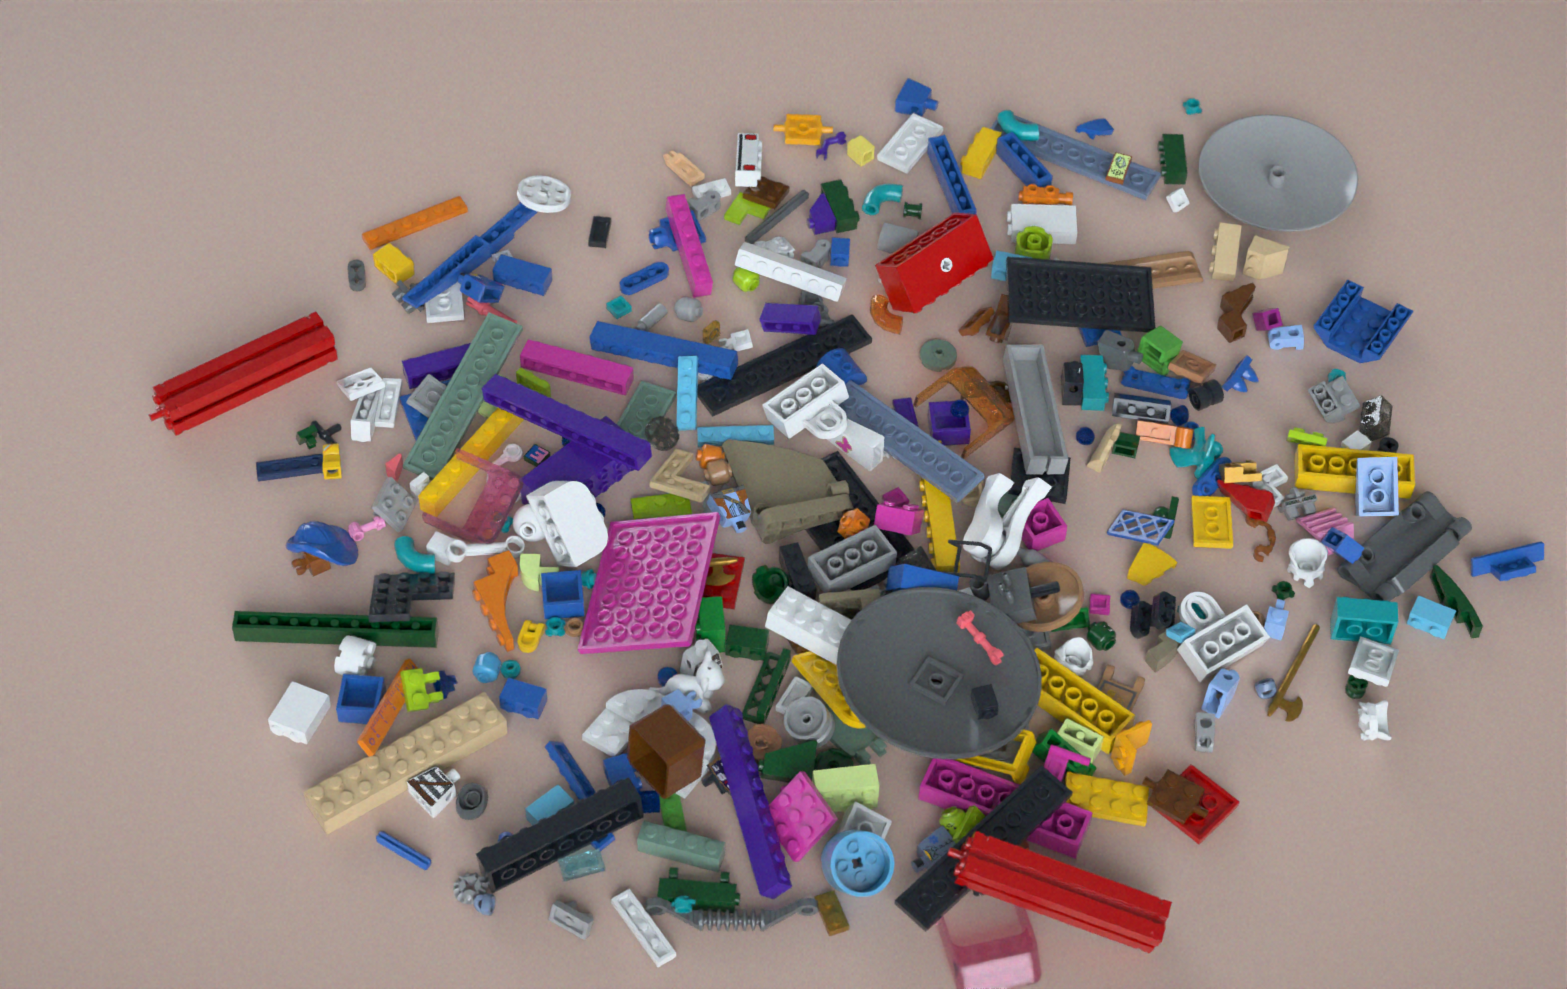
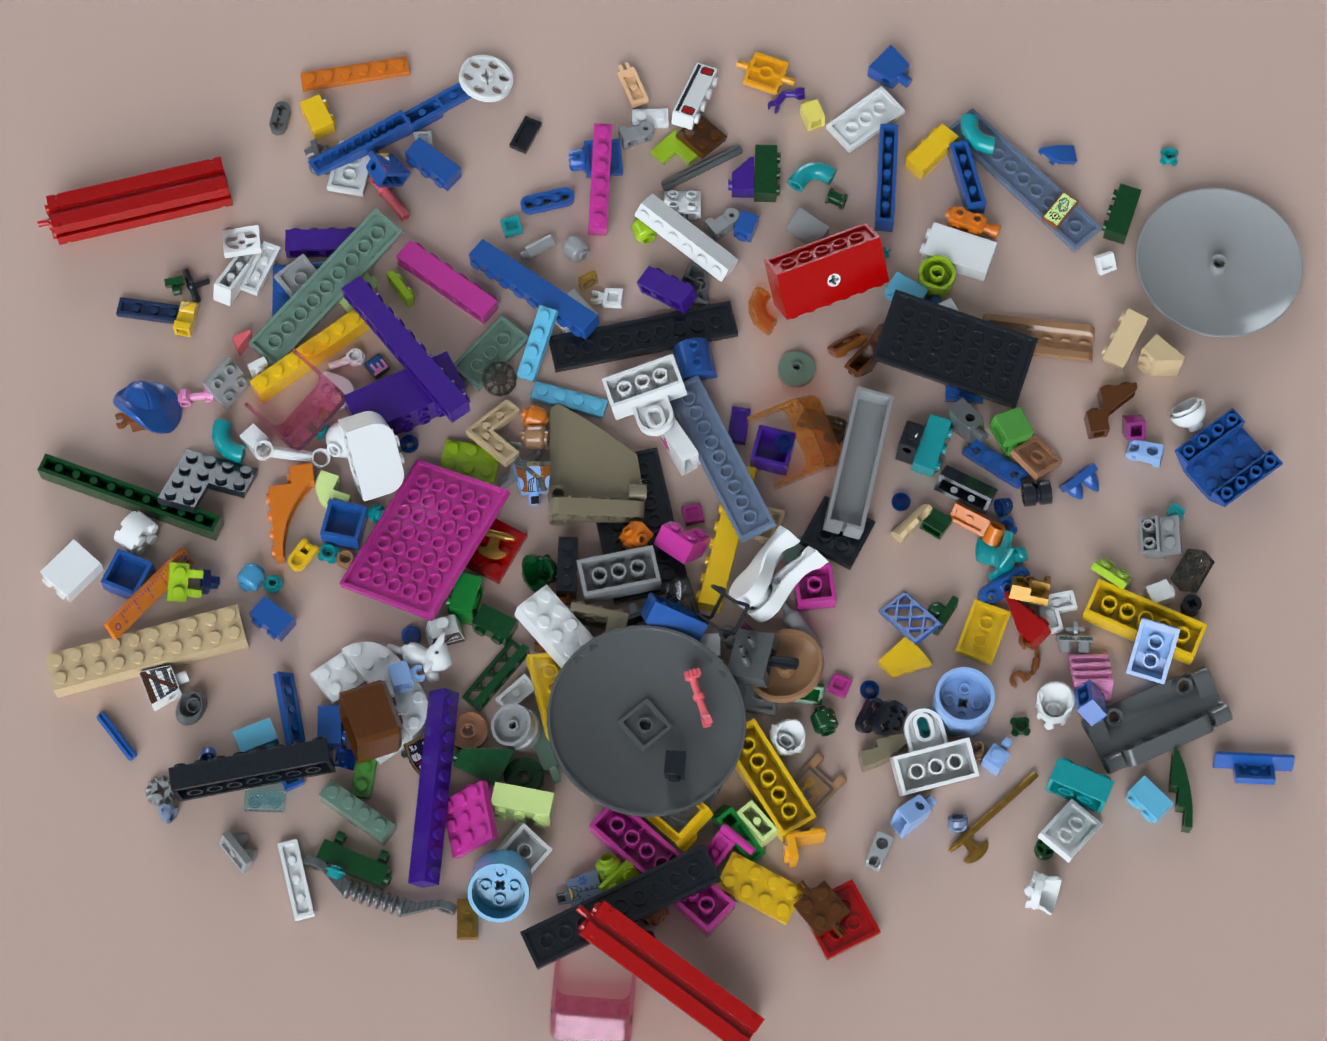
camera: 20 degrees right, 15 degrees up
(1180, 632) = (895, 745): medium azure plate -> none
(1227, 575) = (967, 688): none -> light blue brick
(1311, 296) = (1189, 414): none -> white piece

